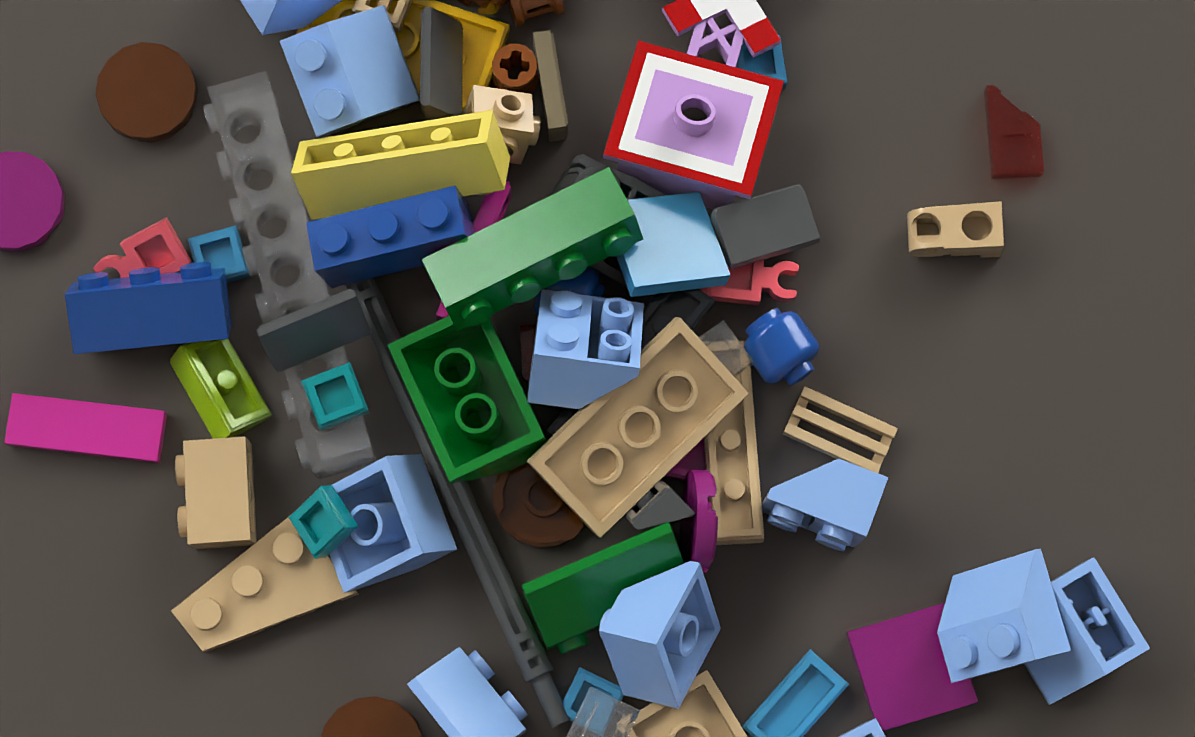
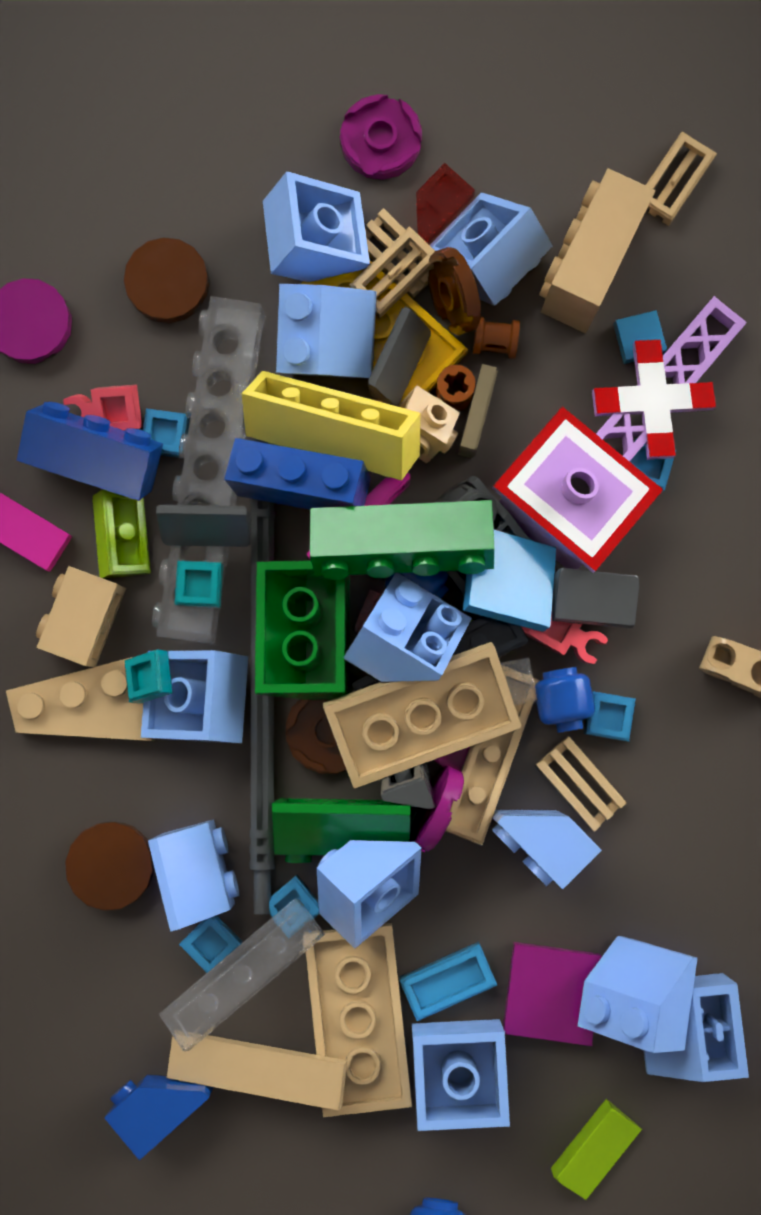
camera: 30 degrees right, 5 degrees up
(840, 347) = (611, 717): none -> dark azure tile

